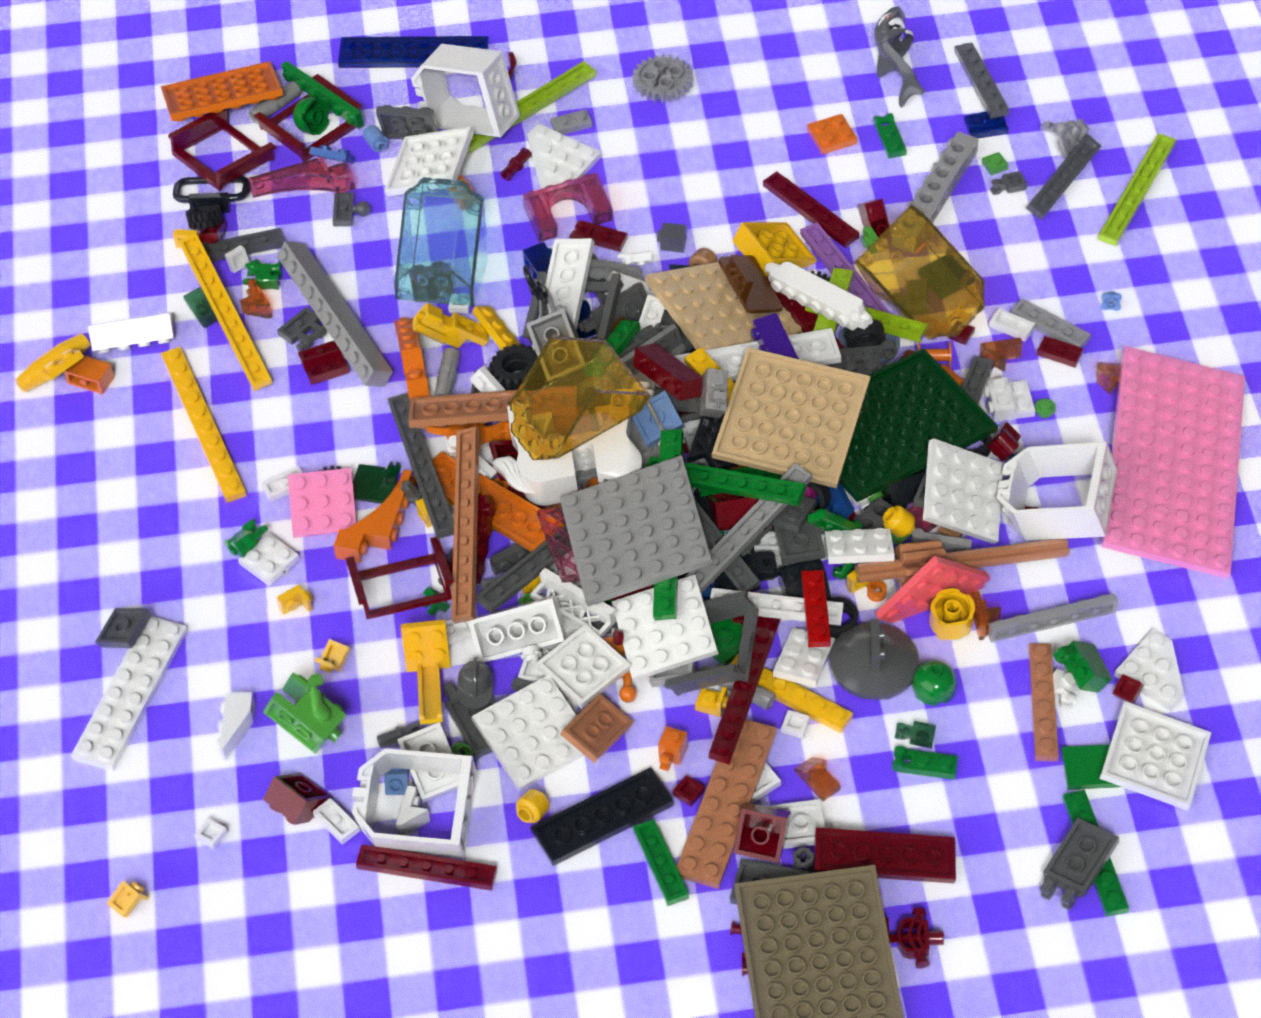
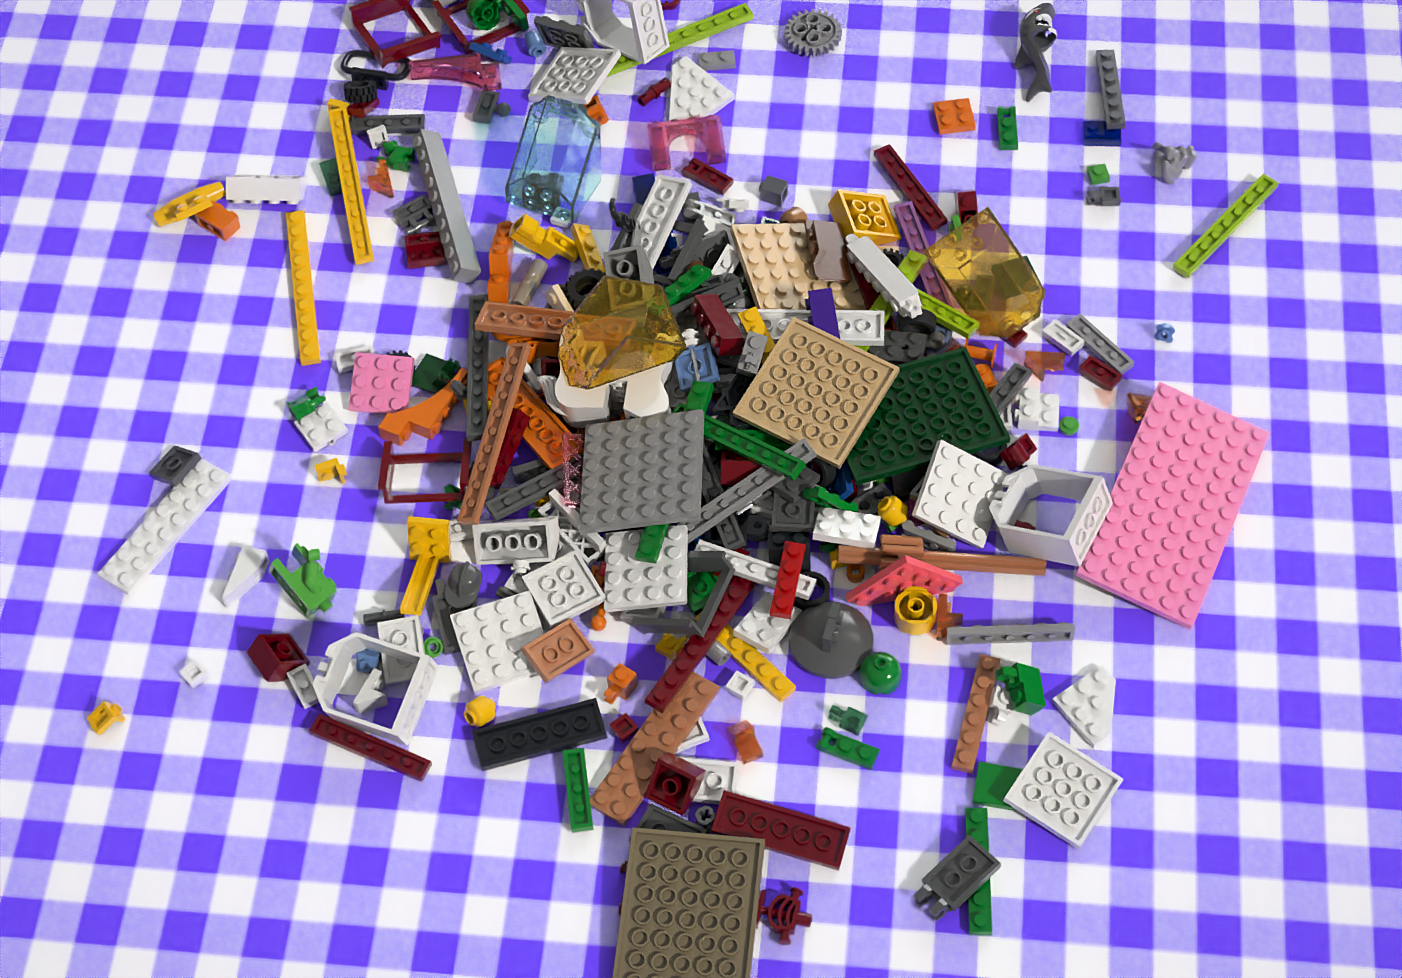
camera: 15 degrees right, 5 degrees up
(333, 656) = (348, 531): yellow bracket -> none
(945, 175) = (1040, 184): light grey brick -> none
(1063, 176) = (1158, 200): dark grey plate -> none
(1128, 689) = (1058, 719): dark red plate -> none

